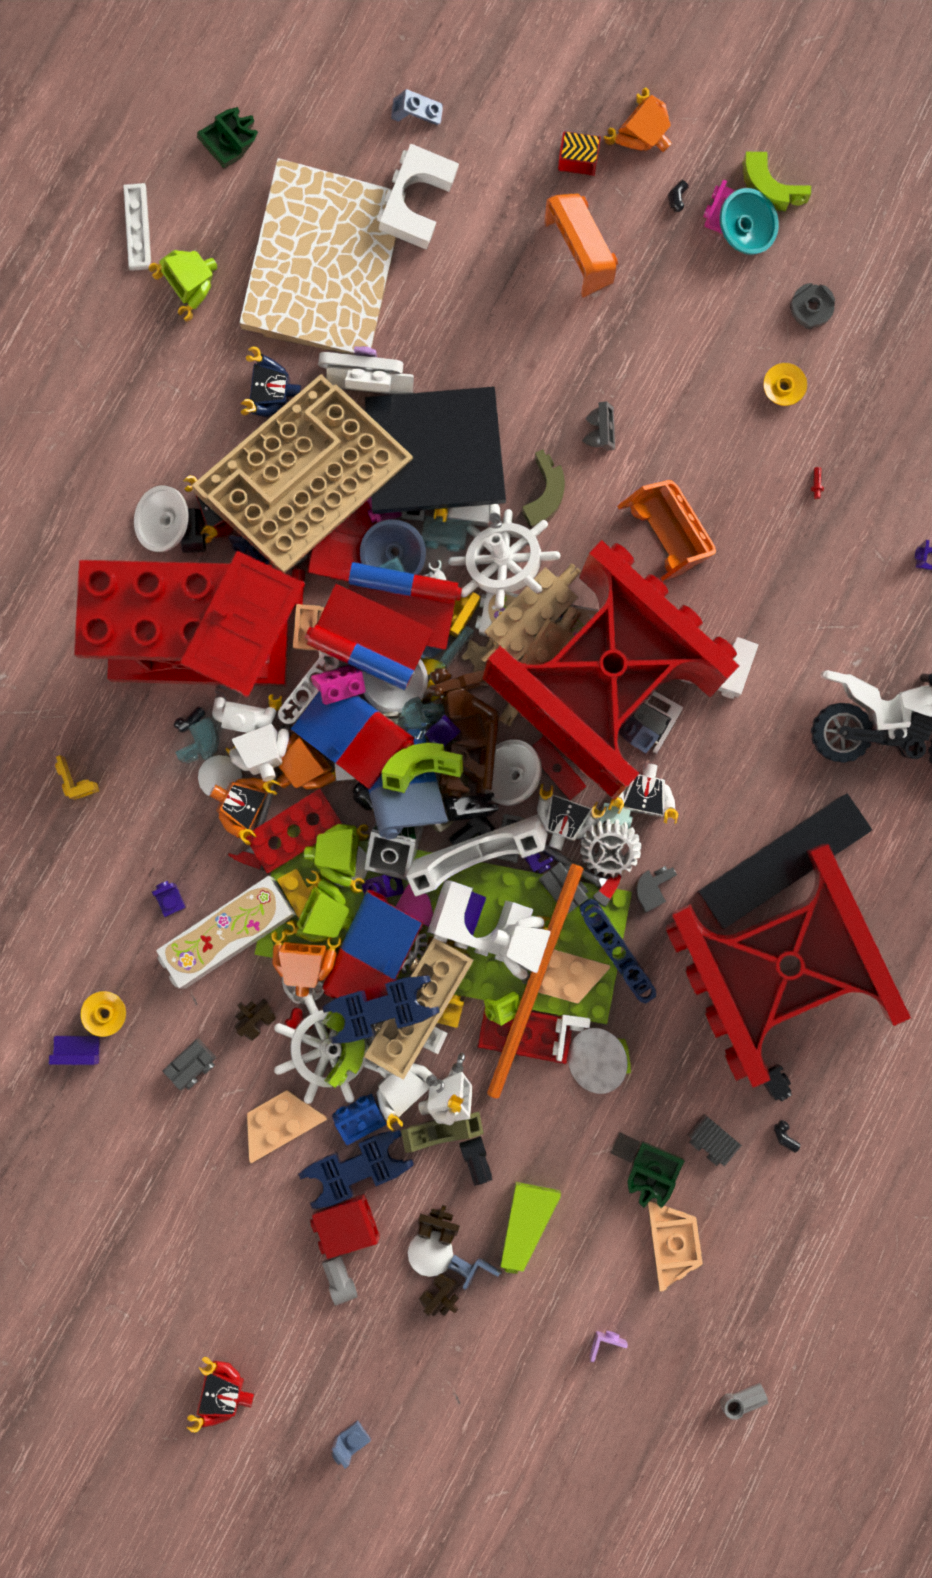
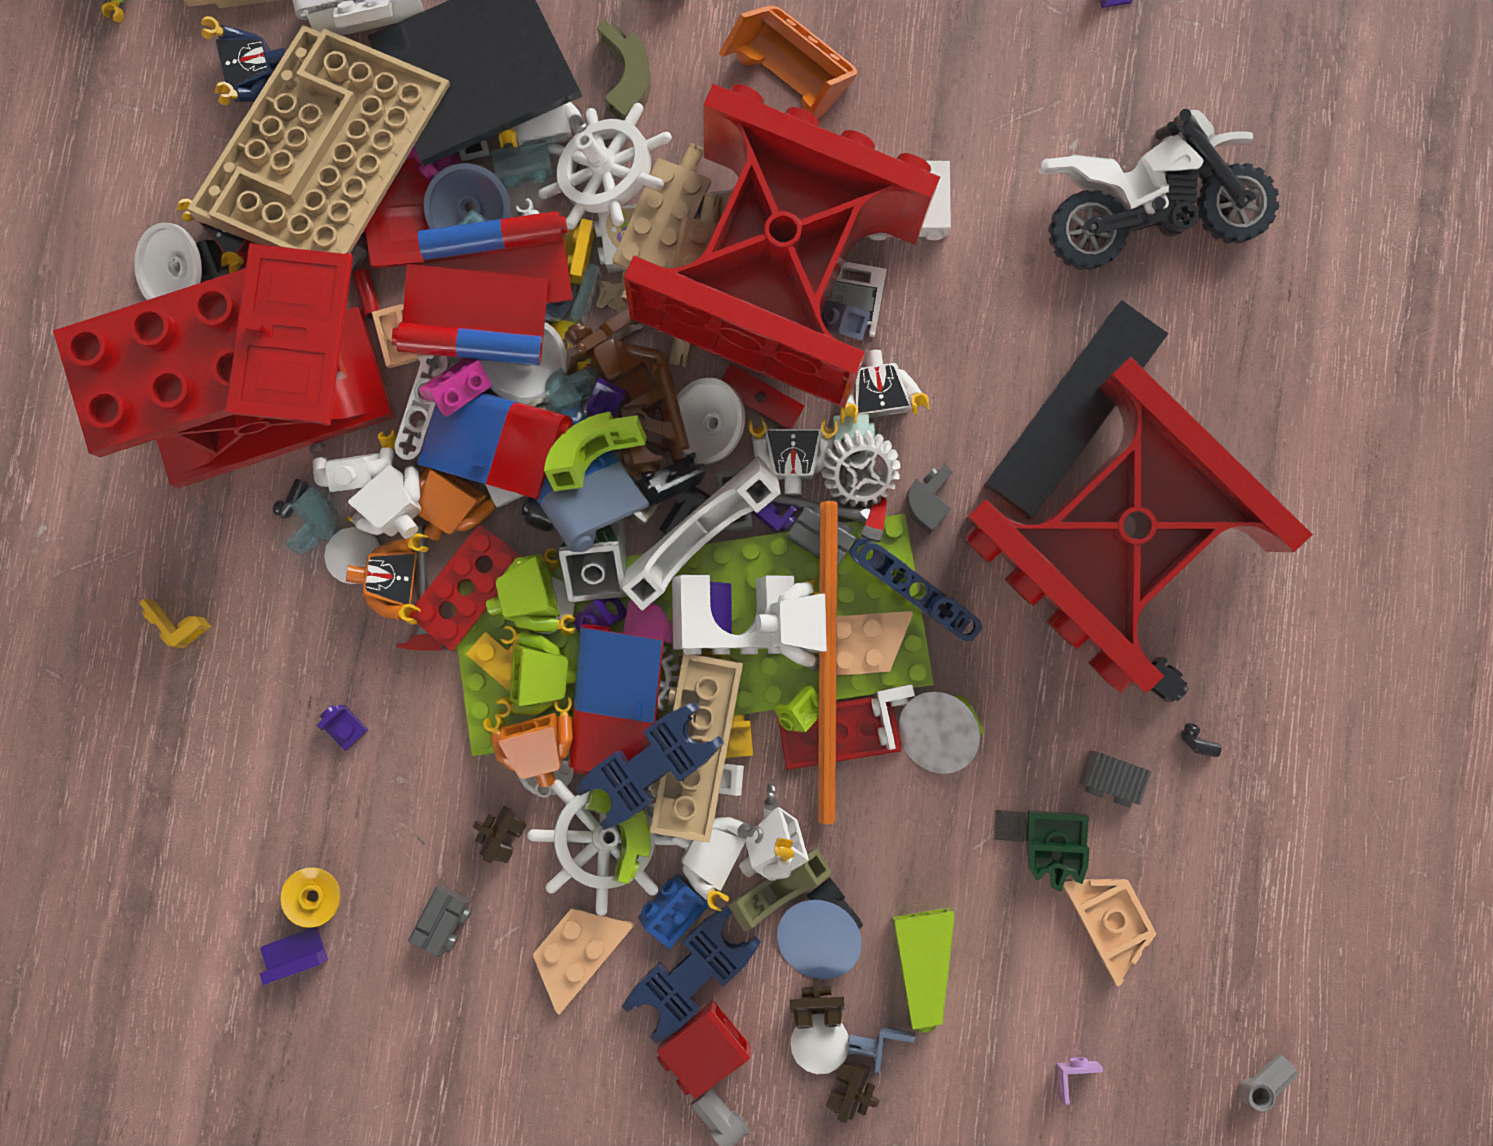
camera: 20 degrees left, 0 degrees up
(225, 933) = (426, 742): brick -> none
(295, 1018) = (550, 816): red piece -> none
(457, 1178) = (819, 939): none -> medium blue sticker

